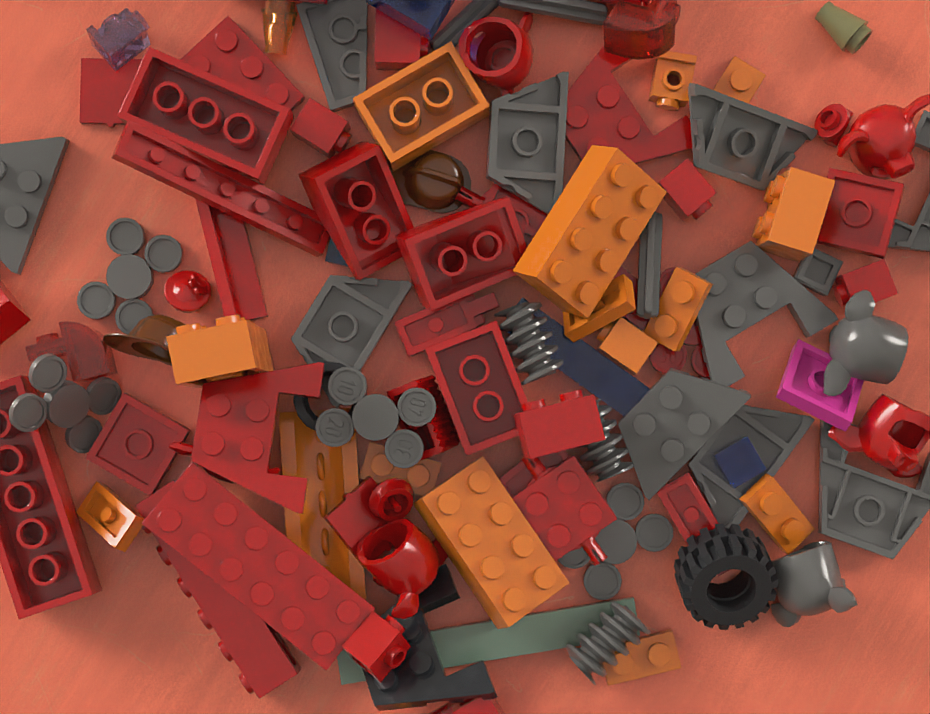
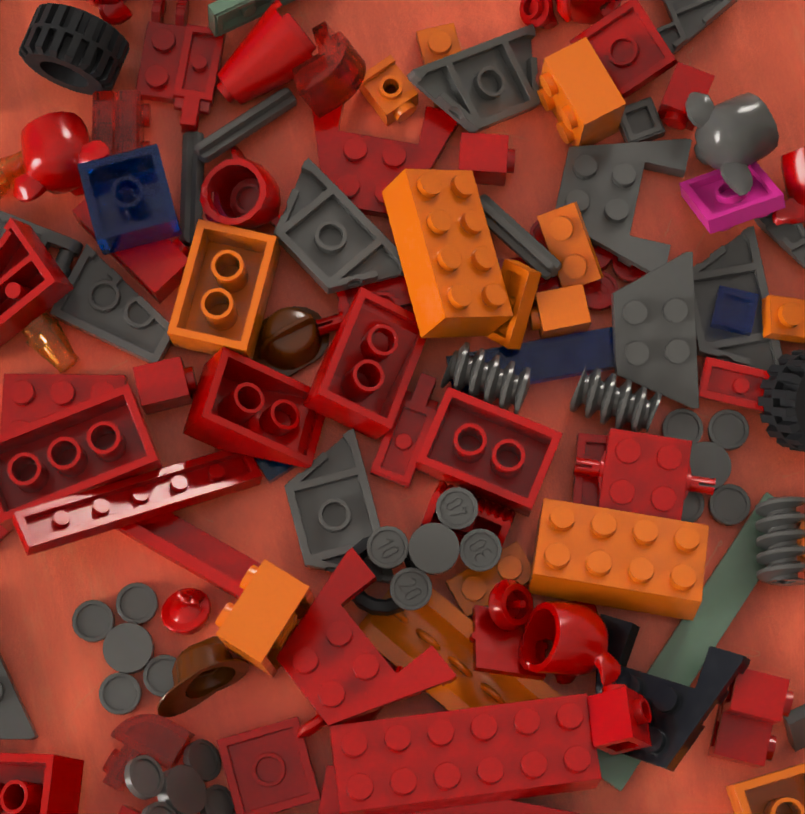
camera: 45 degrees left, 10 degrees down
(559, 425) = (577, 412): red brick -> none

